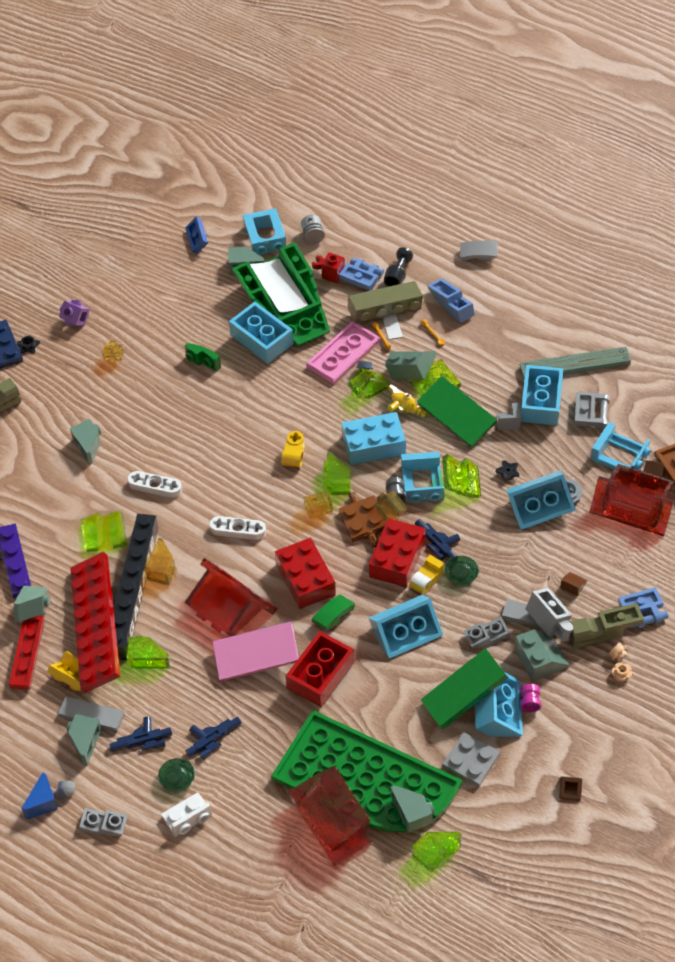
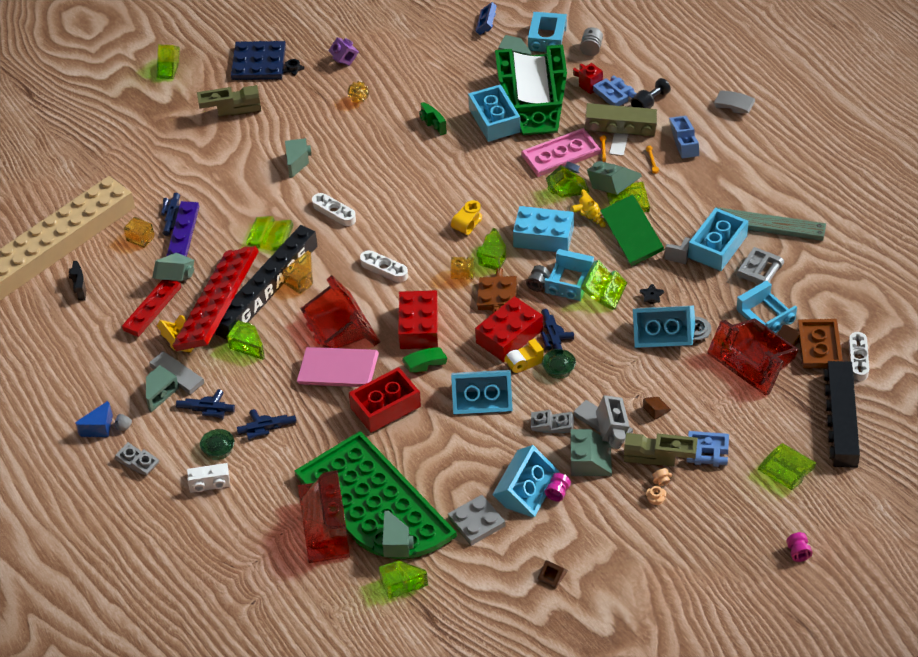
camera: 25 degrees right, 5 degrees down
(390, 506) = (524, 288): clear yellow brick -> none
(464, 688) = (499, 456): green tile -> none

